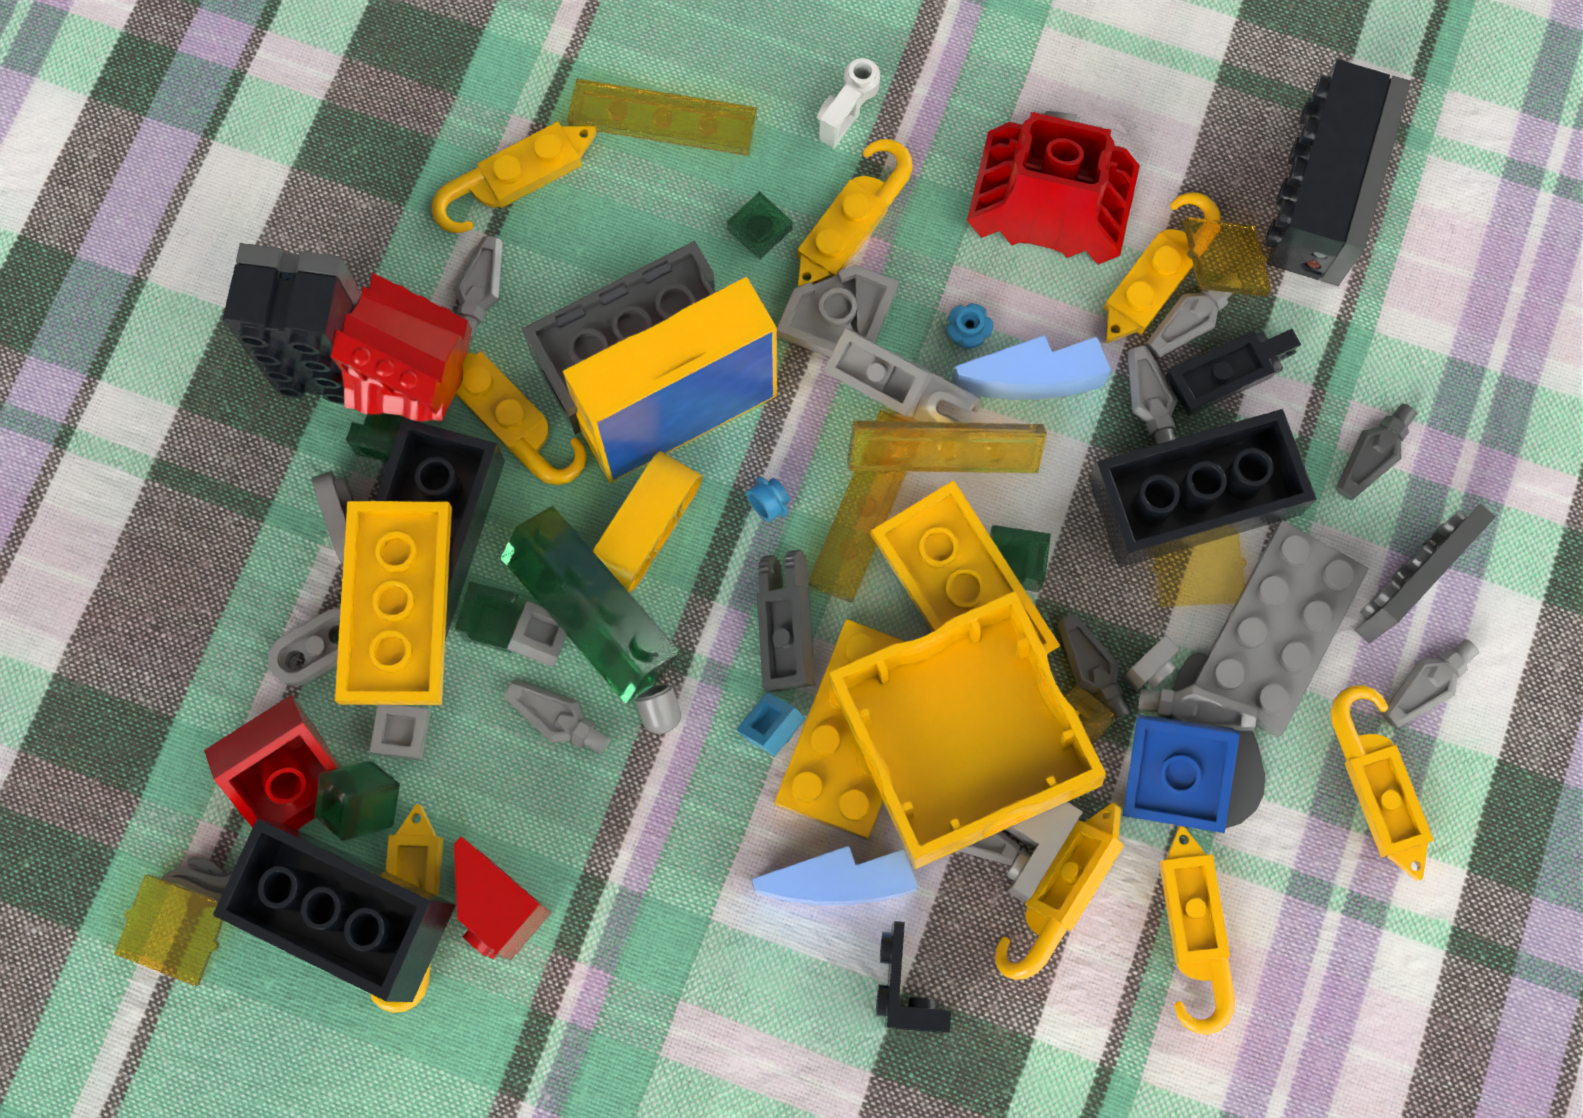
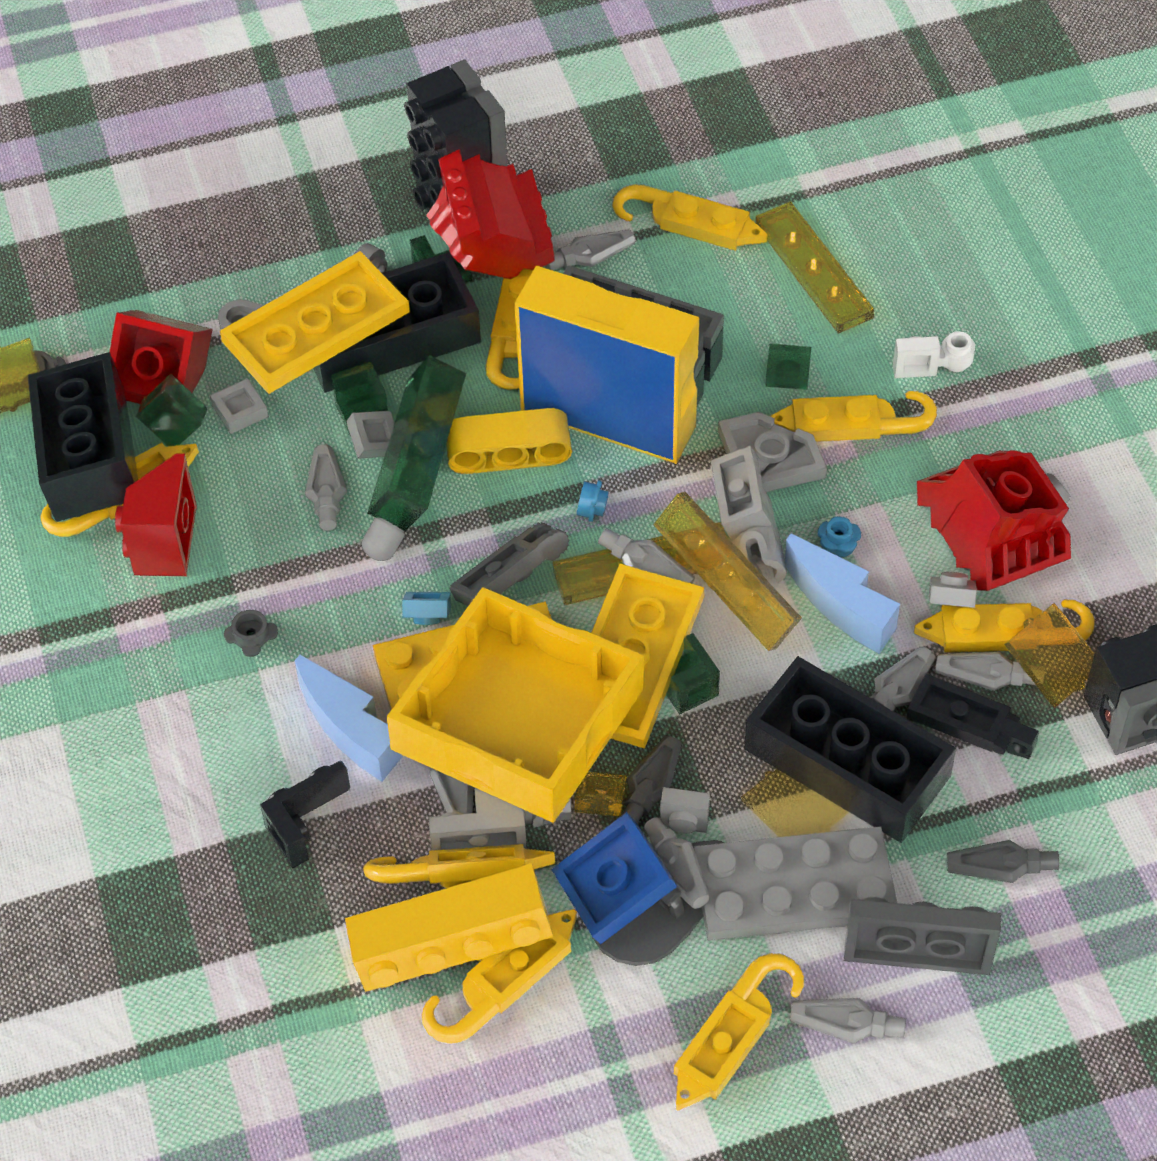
camera: 55 degrees right, 20 degrees down
(682, 908) = (247, 622): none -> dark grey plate
(876, 502) = (644, 556): none -> light grey piece
(1102, 283) = (952, 590): none -> light grey plate
(1133, 949) = (448, 927): none -> yellow brick

